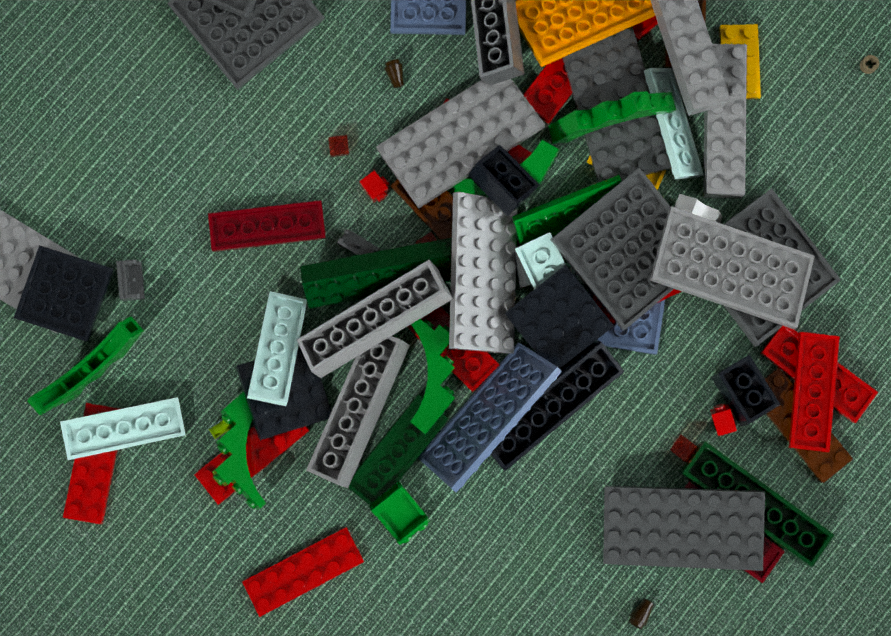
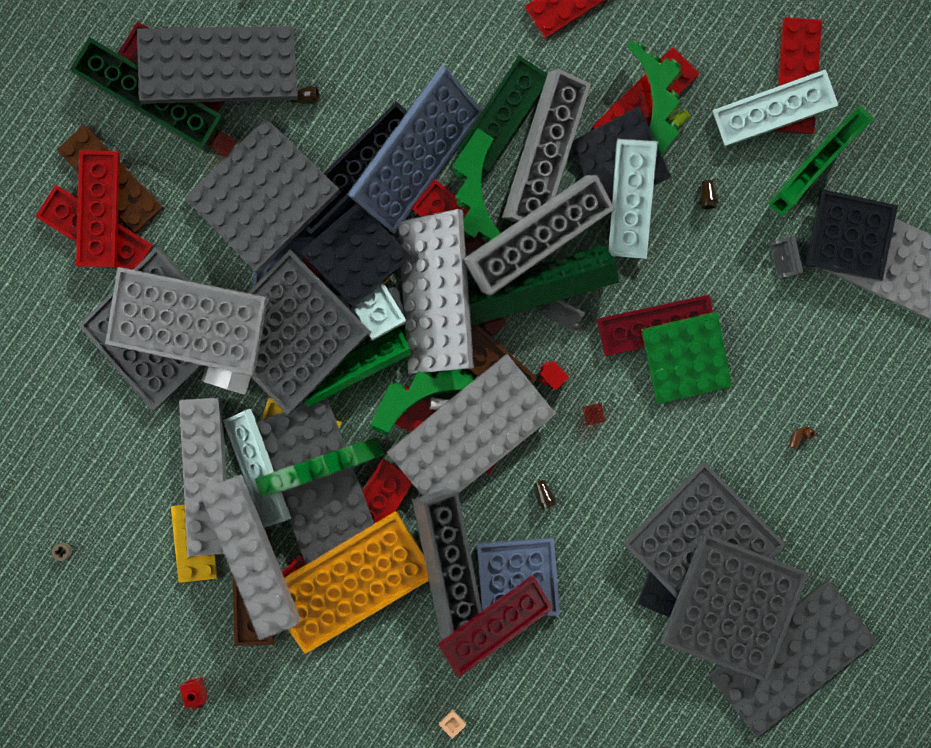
camera: 170 degrees right, 5 degrees up
(137, 108) = (801, 434): none -> reddish brown arm
(200, 349) = (708, 196): none -> dark brown cone
(241, 191) = (686, 357): none -> green plate
(399, 513) = (495, 53): green panel -> none
(503, 179) = (423, 388): black slope -> none
(593, 490) = (307, 95): none -> dark brown cone
(647, 389) = (262, 195): none -> dark grey plate
(723, 419) = (186, 174): red brick -> none
(745, 390) = (165, 204): black slope -> none

